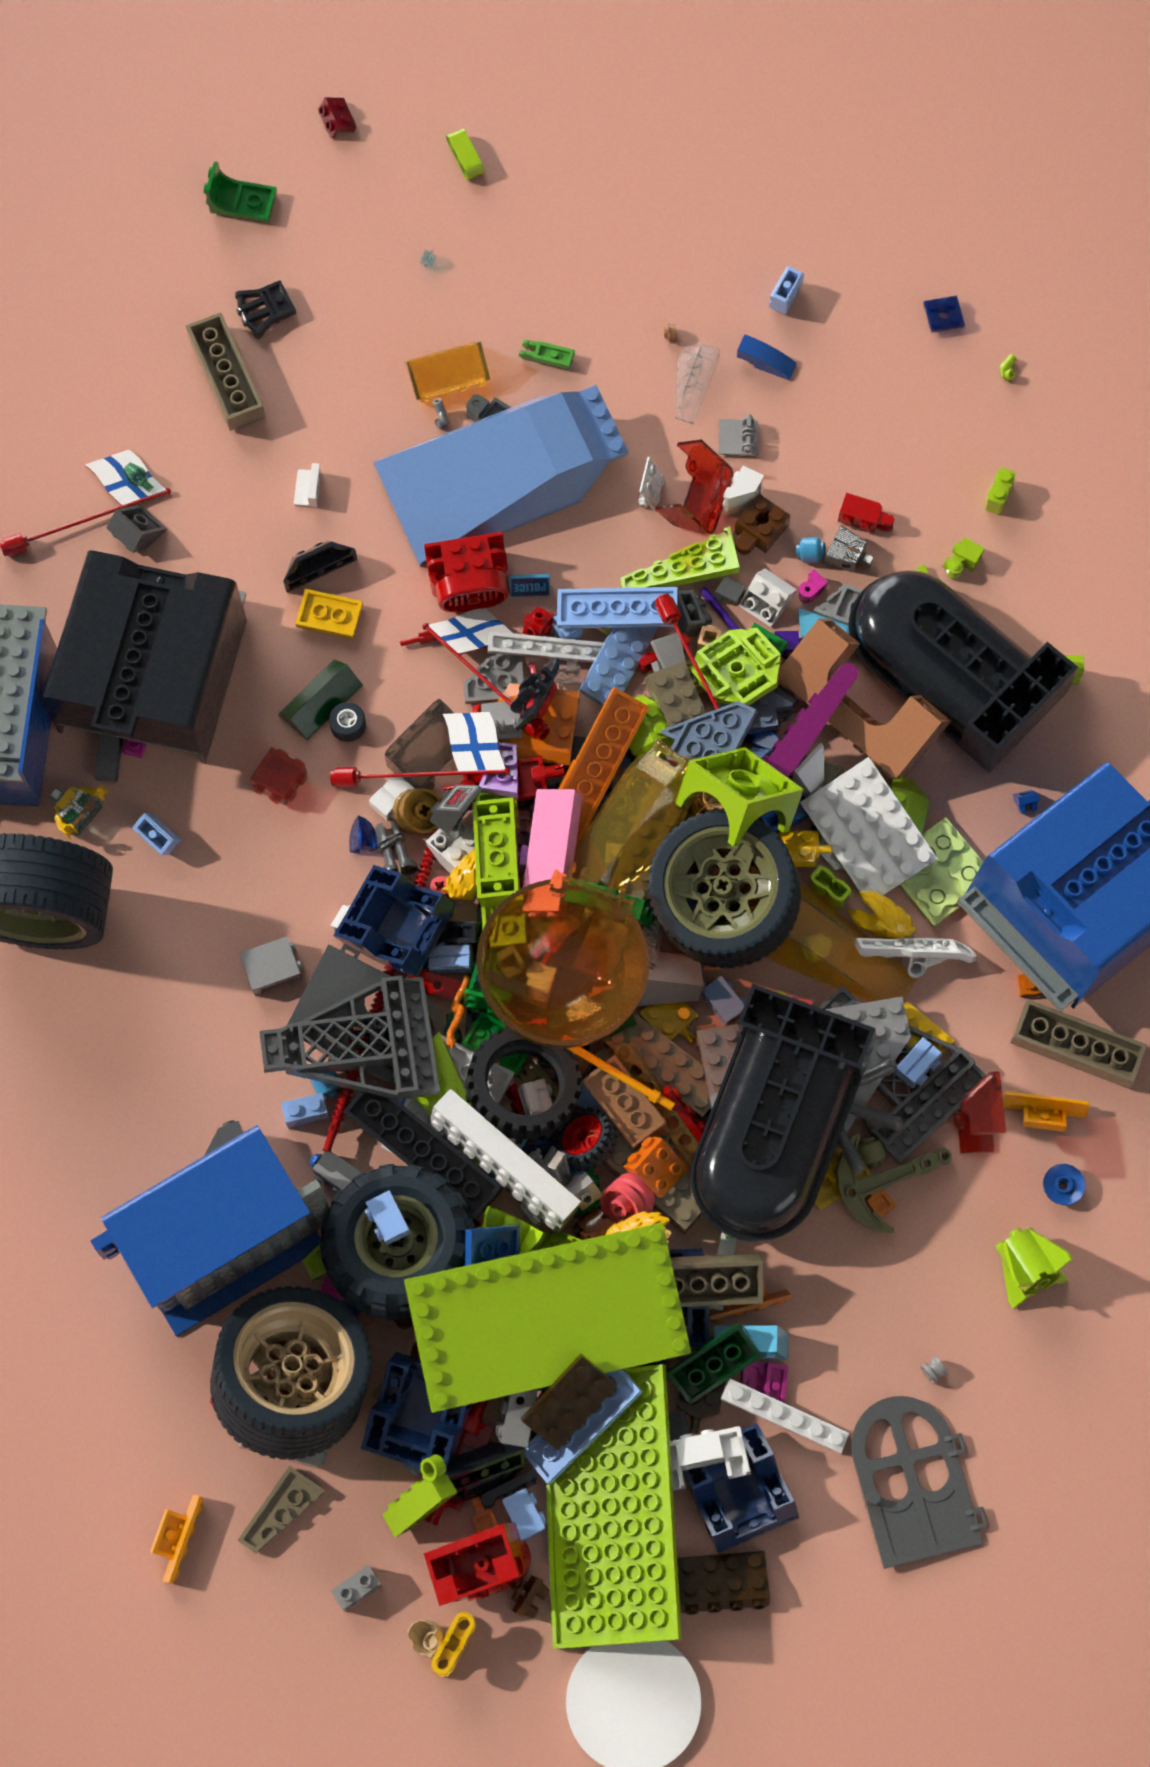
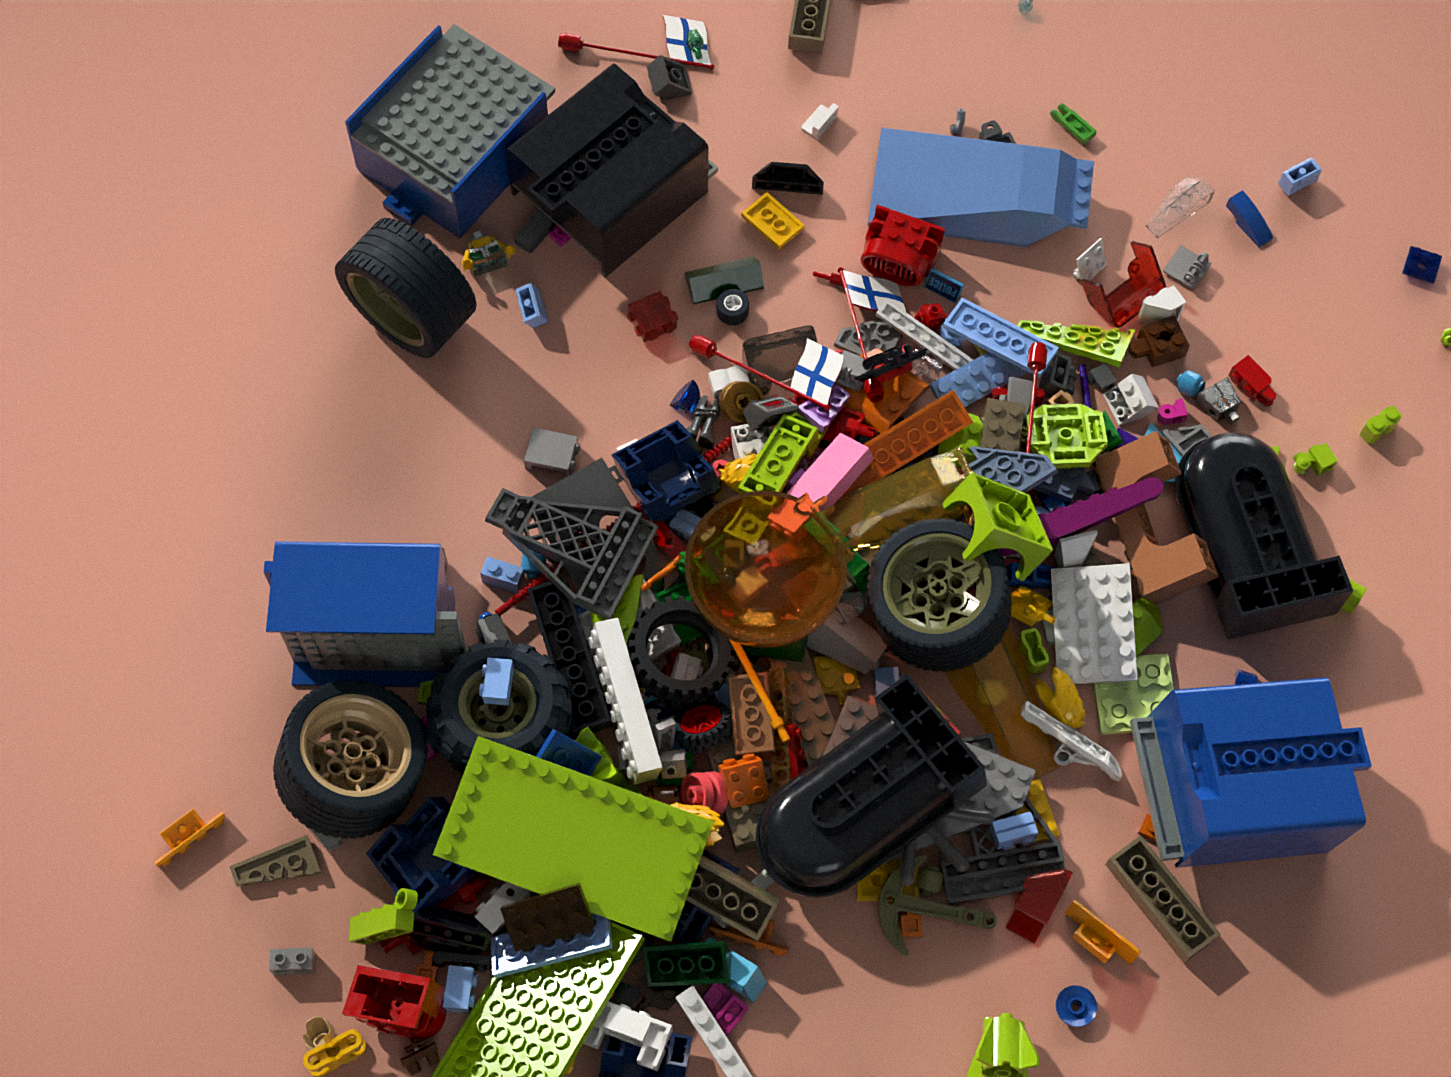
camera: 30 degrees right, 5 degrees down
(447, 371) = (984, 93): clear yellow windscreen -> none
(670, 332) = (1183, 159): medium nougat plate -> none

